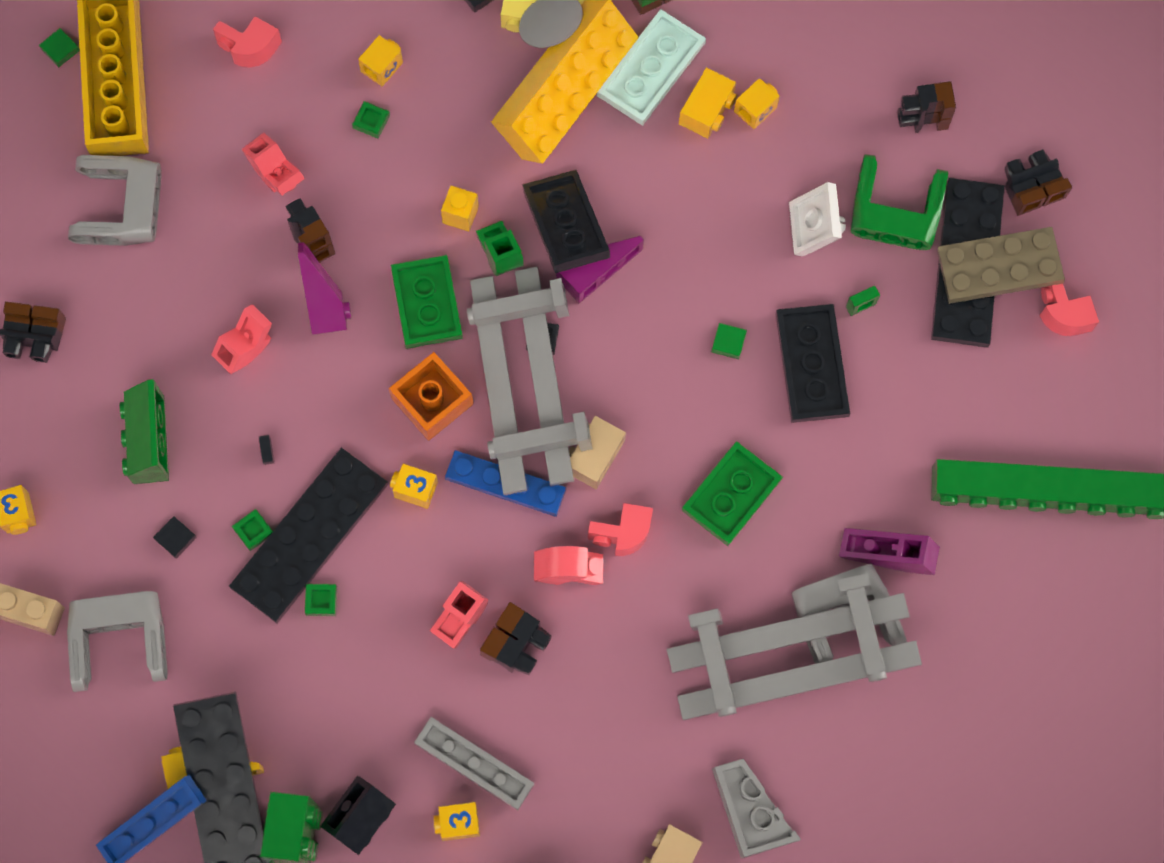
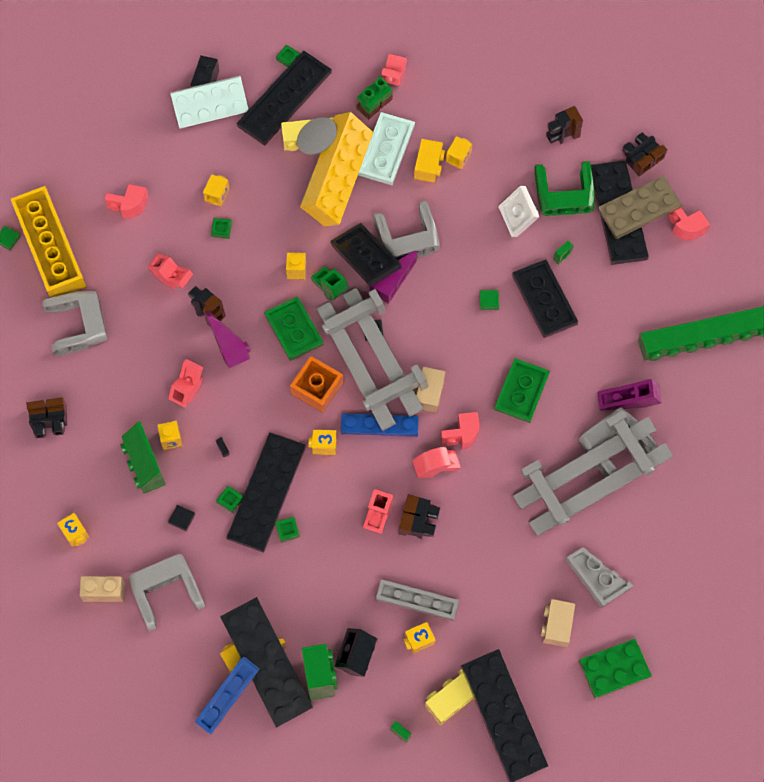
camera: 15 degrees left, 5 degrees down
(195, 410) = (170, 435): none -> yellow brick
(653, 225) = (422, 242): none -> light grey connector

